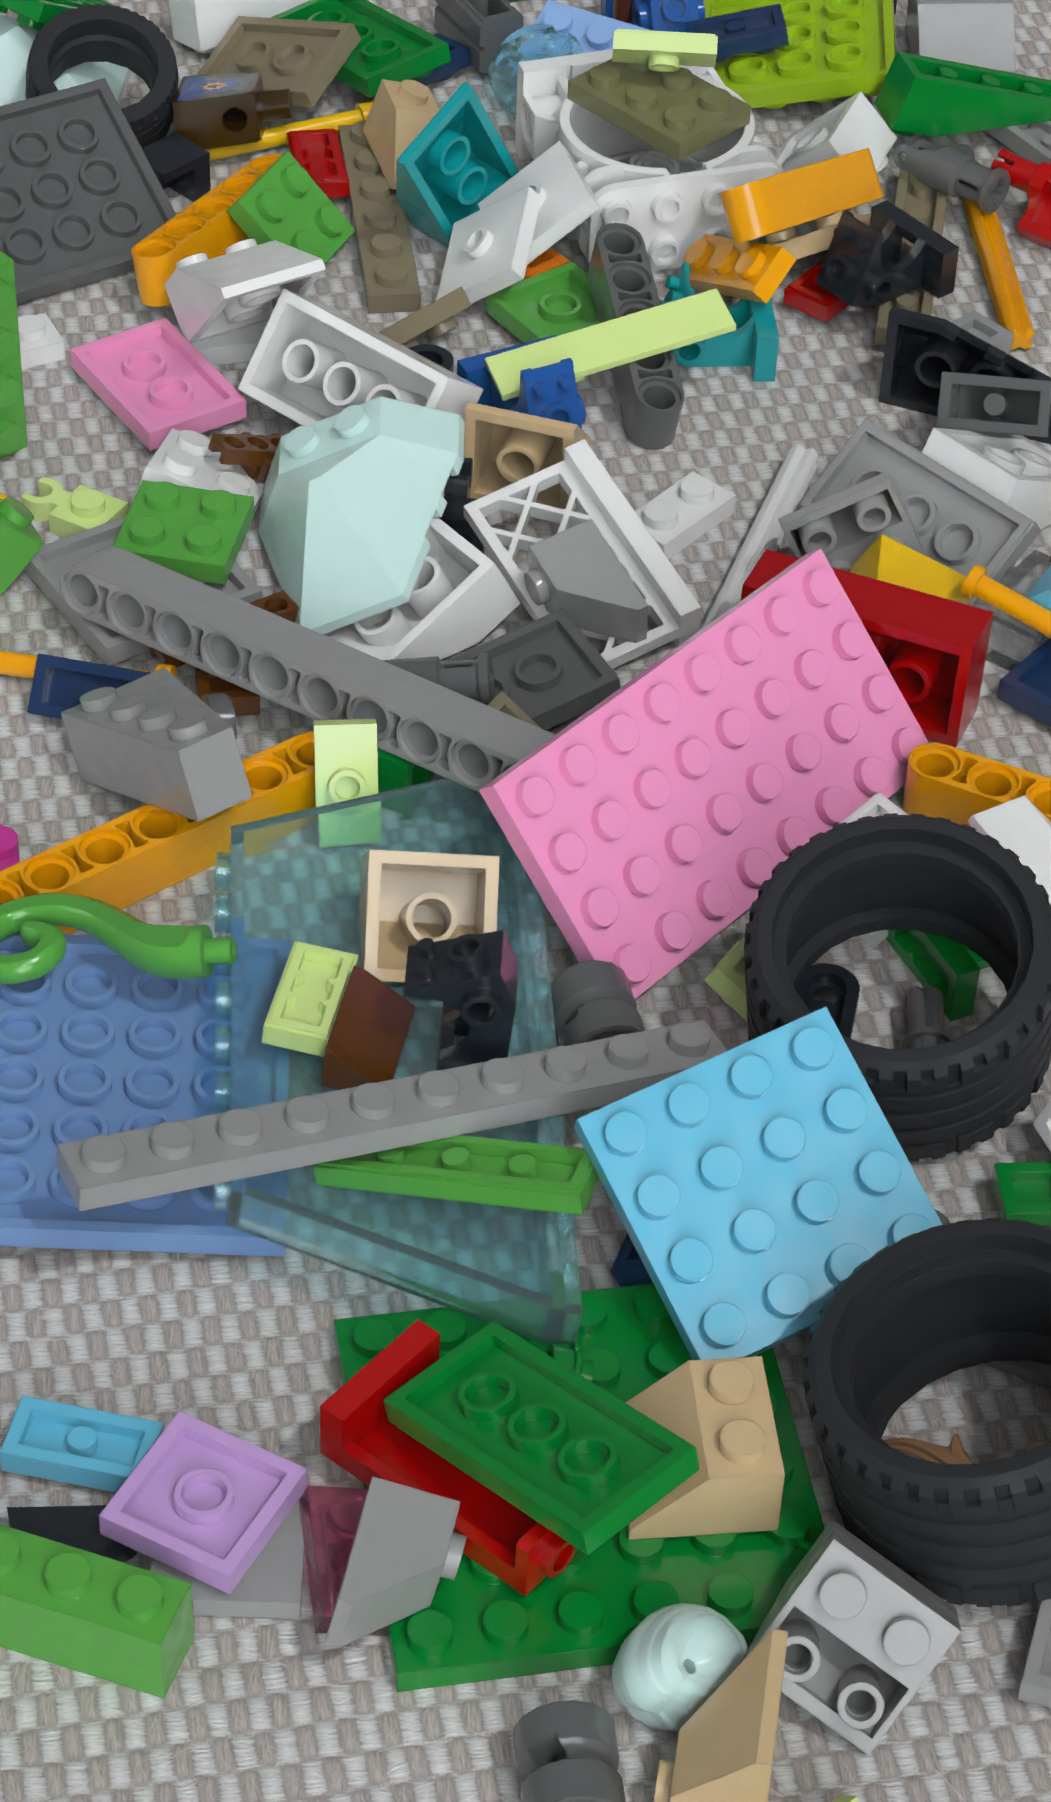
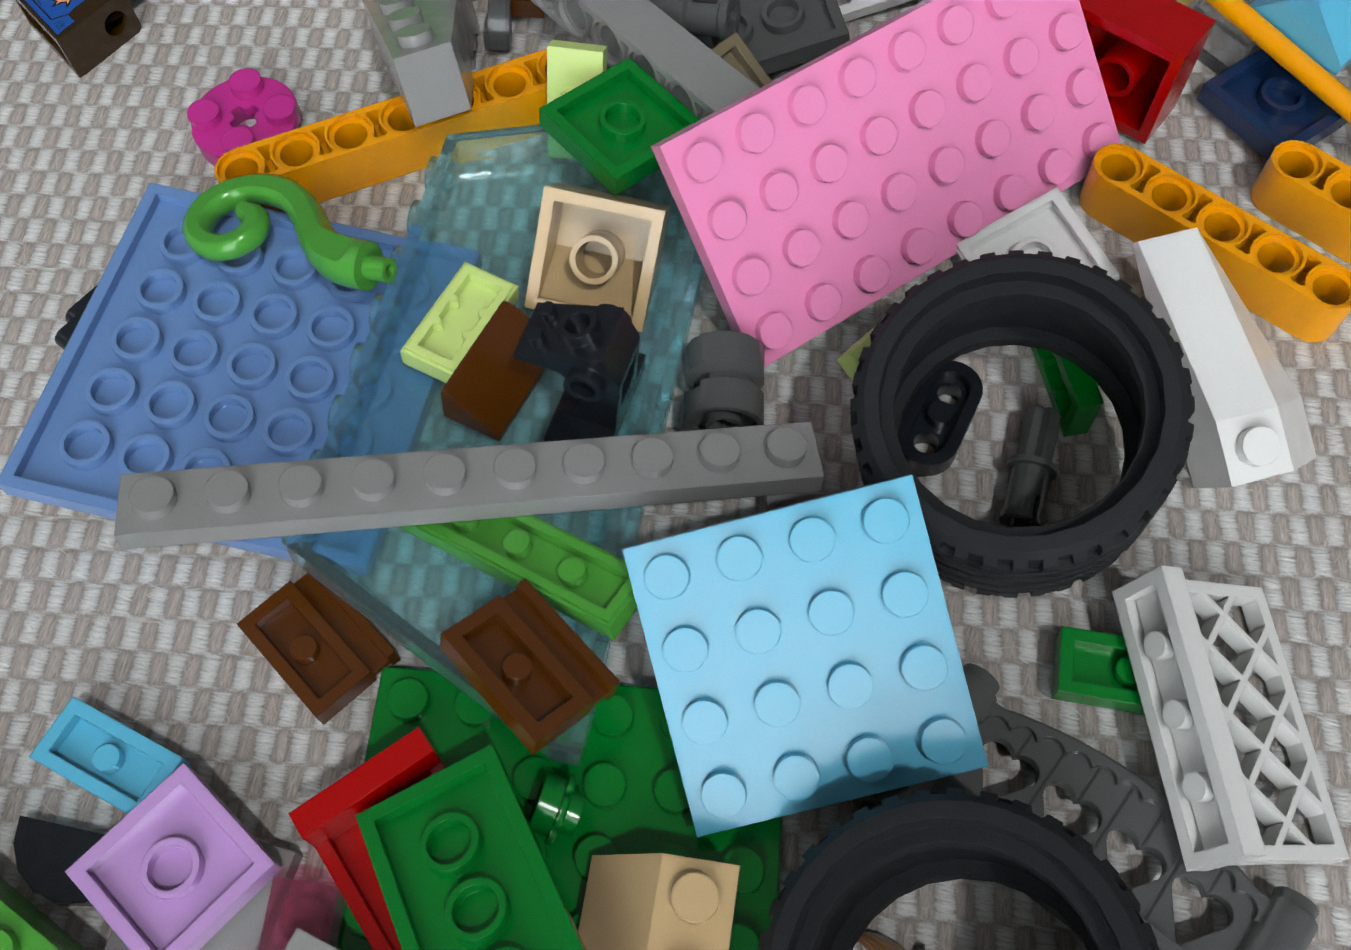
camera: 20 degrees right, 20 degrees up
(257, 1312) = (318, 645): none -> reddish brown plate
(414, 791) = (615, 122): none -> green plate
(511, 1240) = (528, 665): none -> reddish brown plate

